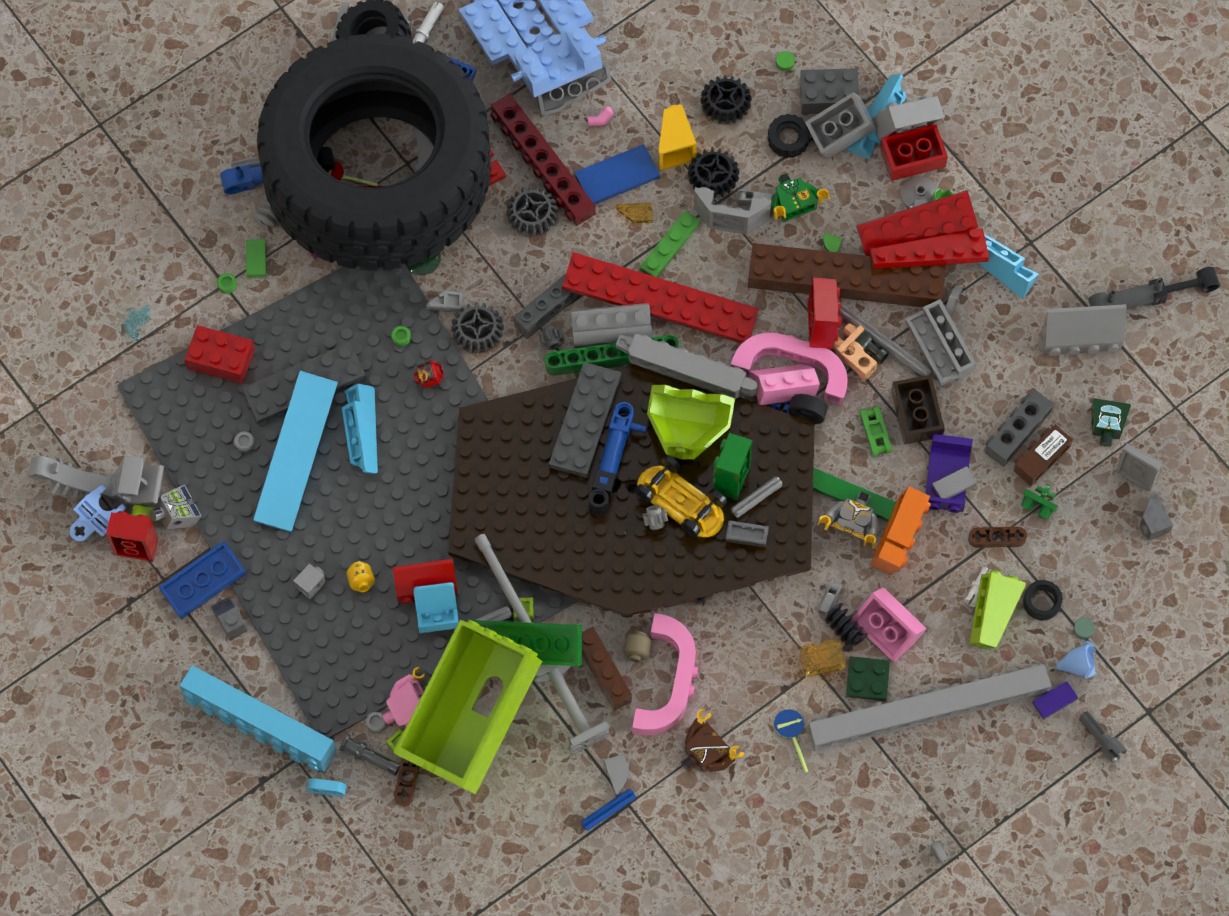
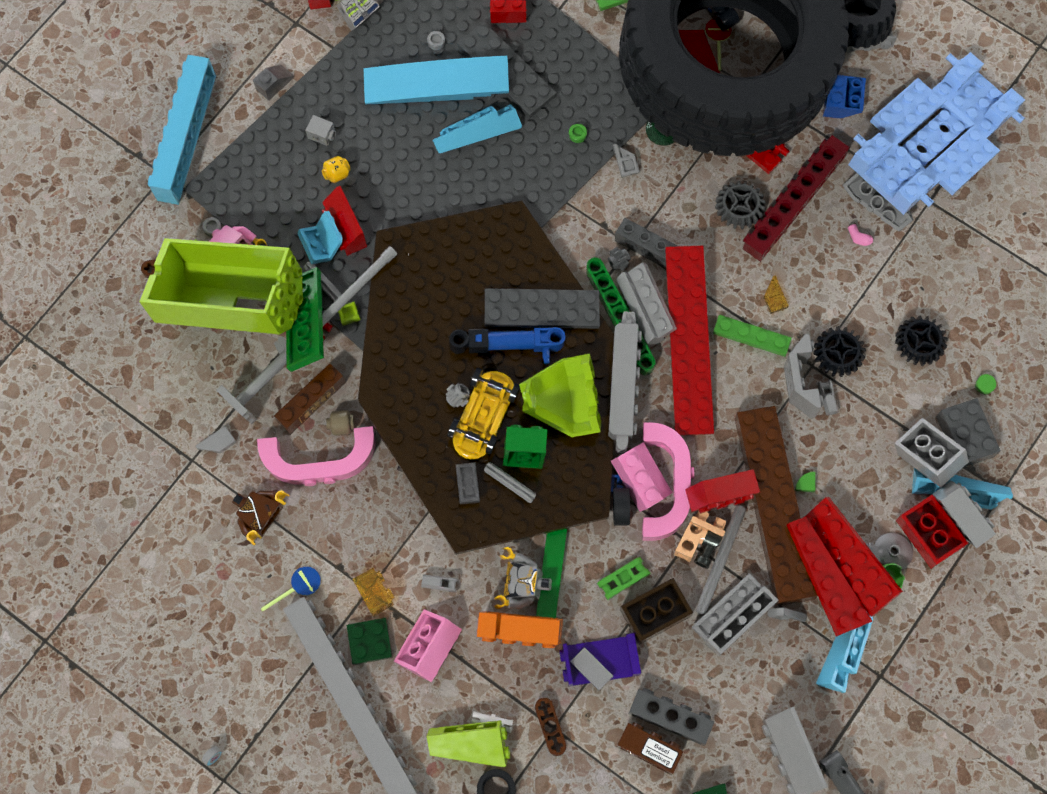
camera: 75 degrees right, 5 degrees up
(202, 579) = (301, 50): blue tile -> none
(326, 787) = (140, 203): medium azure beam -> none
(361, 750) = (181, 220): dark grey pin -> none
(423, 31) = (891, 60): white pin -> none
(429, 374) = (545, 165): head -> none
(494, 326) = (620, 186): dark grey gear -> none
(608, 809) = (180, 443): blue axle -> none
(617, 174) = (806, 268): blue tile -> none
(676, 139) = (858, 303): yellow slope -> none
(783, 149) = (905, 394): black tyre -> none
(795, 198) = (839, 432): green torso -> none
(844, 626) = (412, 604): black piece -> none
(1047, 506) = (602, 761): green hips -> none

